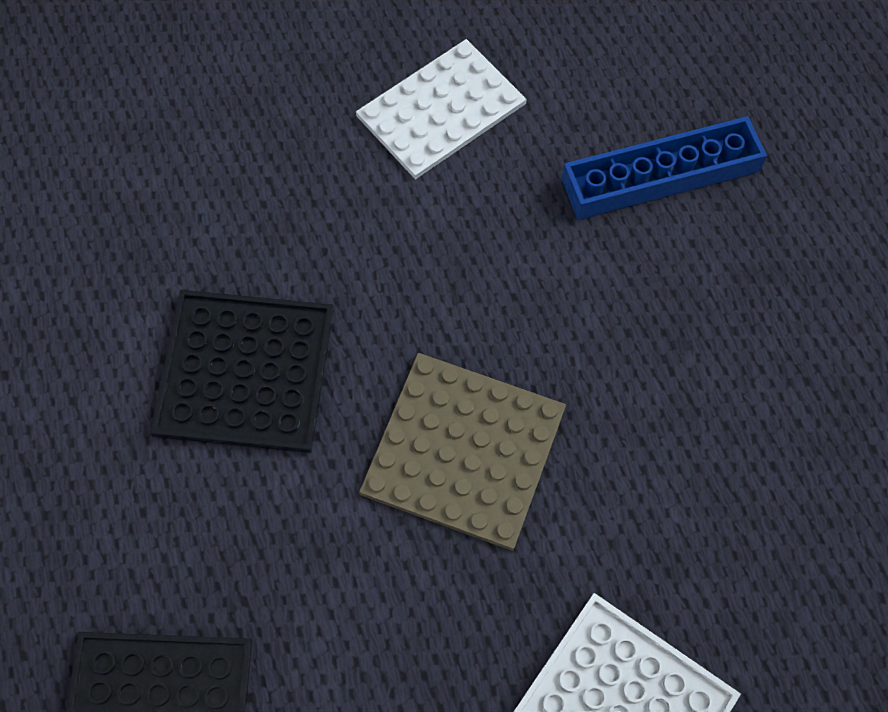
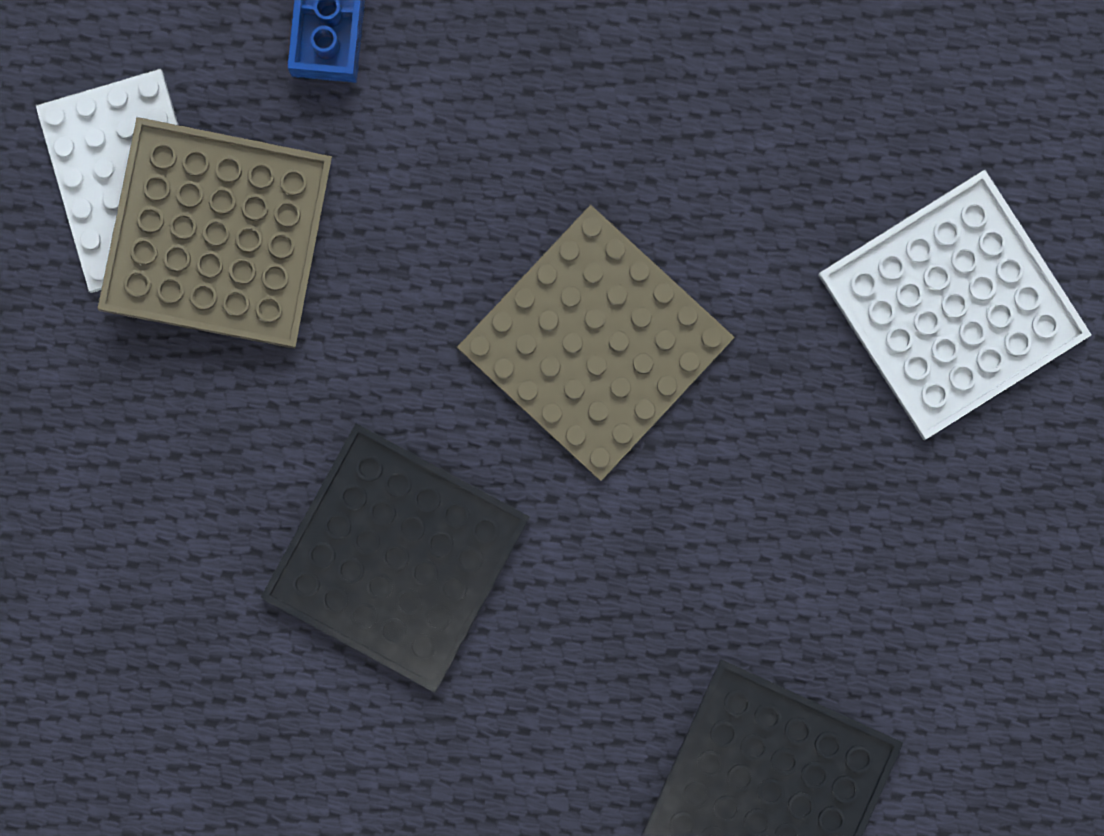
camera: 65 degrees left, 20 degrees up
(429, 167) = (214, 233): none -> dark tan plate

